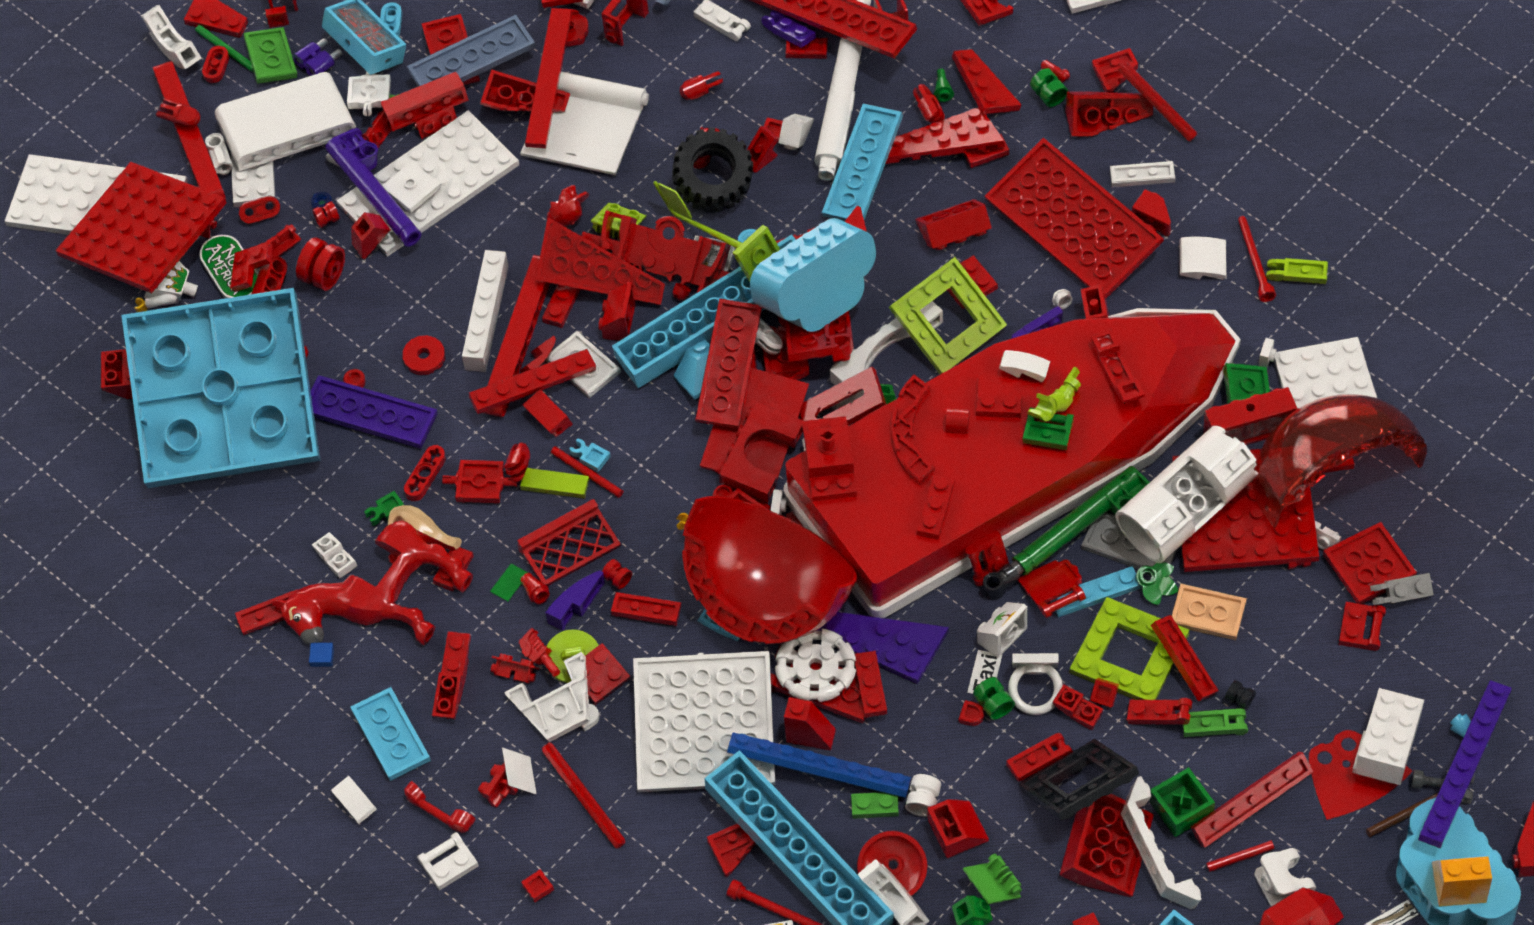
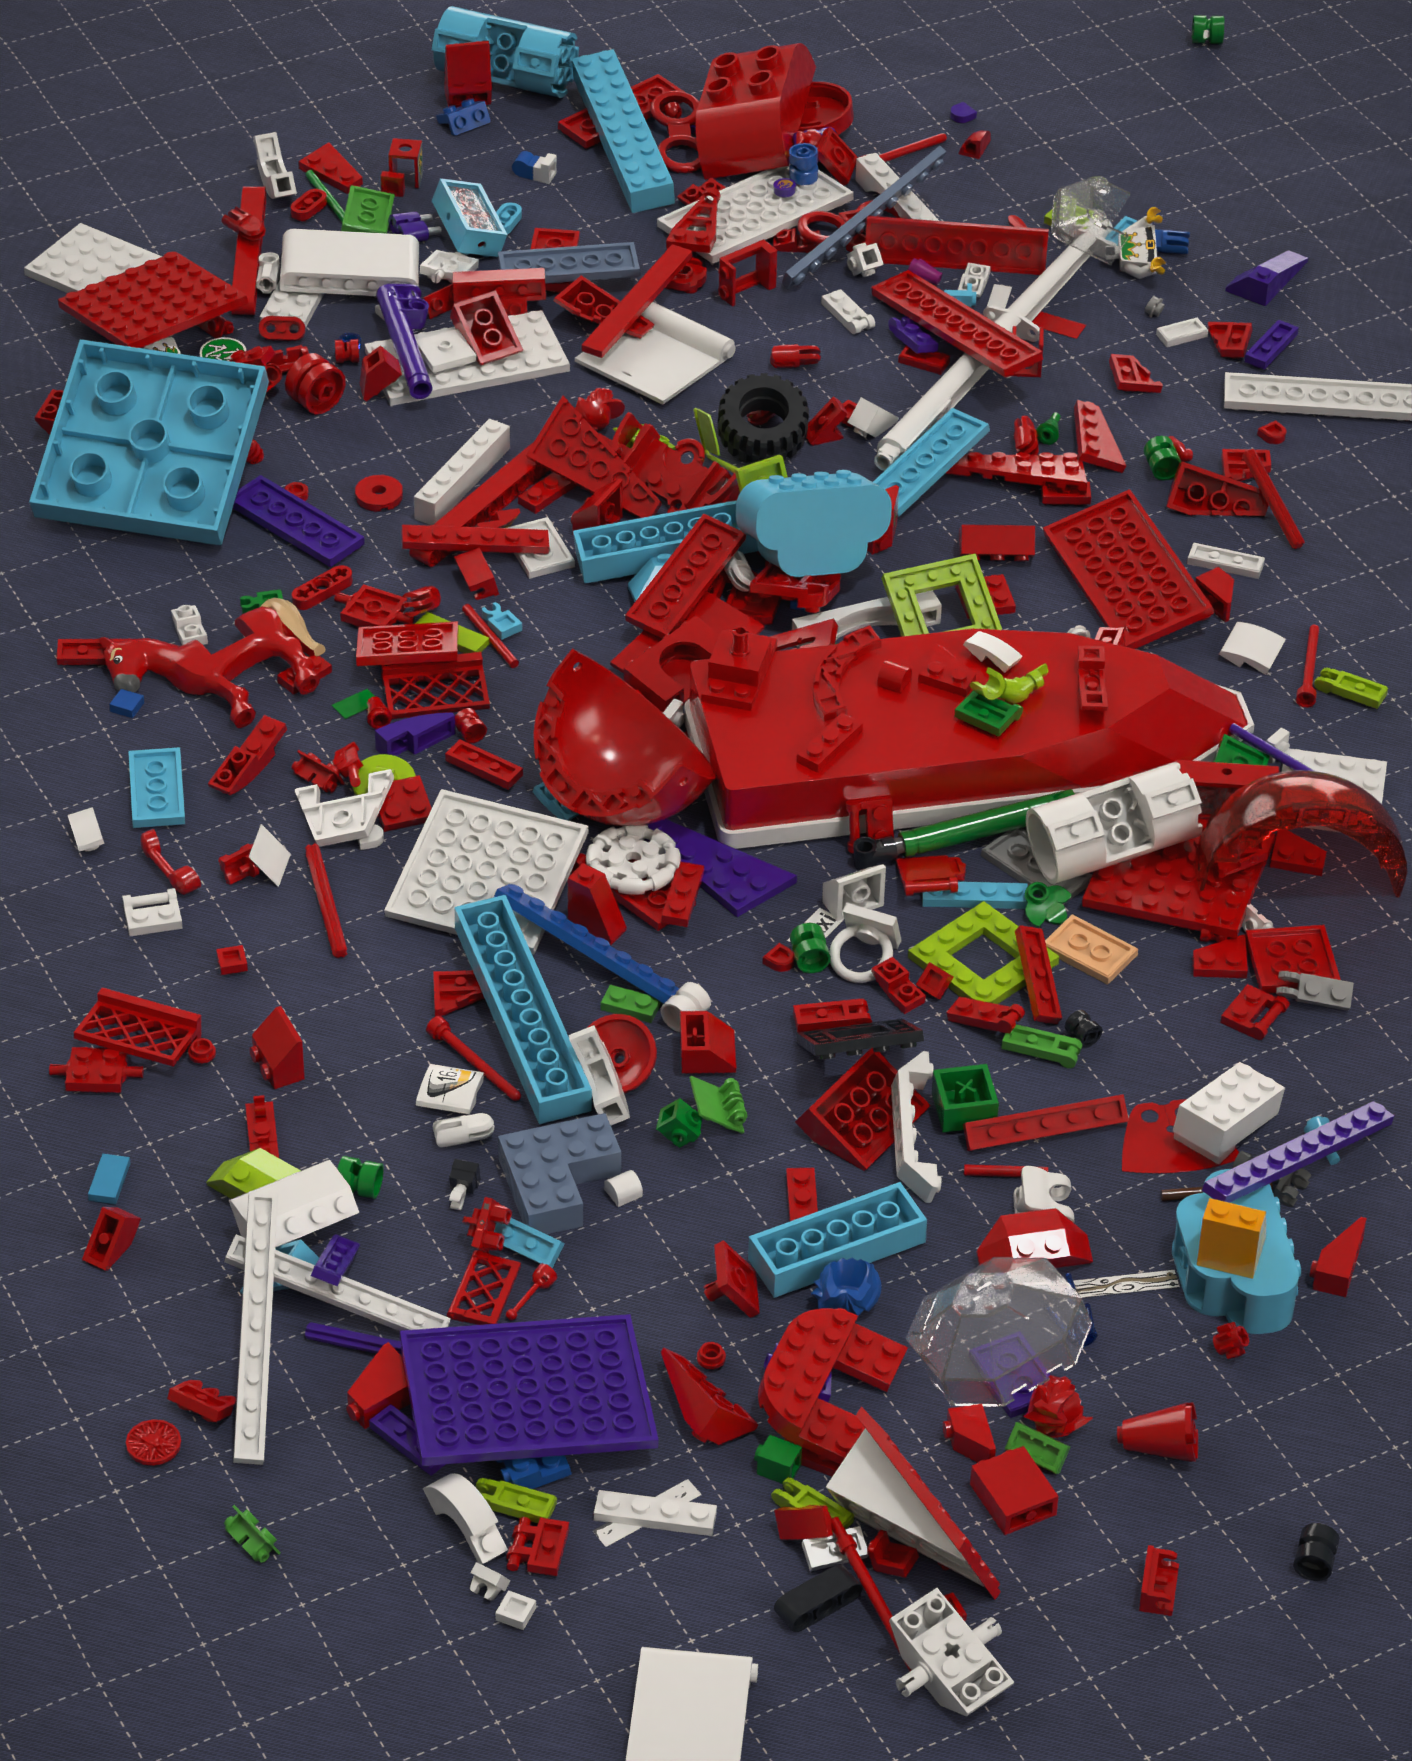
camera: 15 degrees right, 15 degrees down
(437, 154) = (486, 327): none -> red slope
(529, 512) = (407, 643): none -> red plate
(1122, 25) = (1272, 433): none -> red tile
(1269, 364) = (1267, 748): none -> dark purple bar
(1314, 583) = (1222, 959): none -> red wing

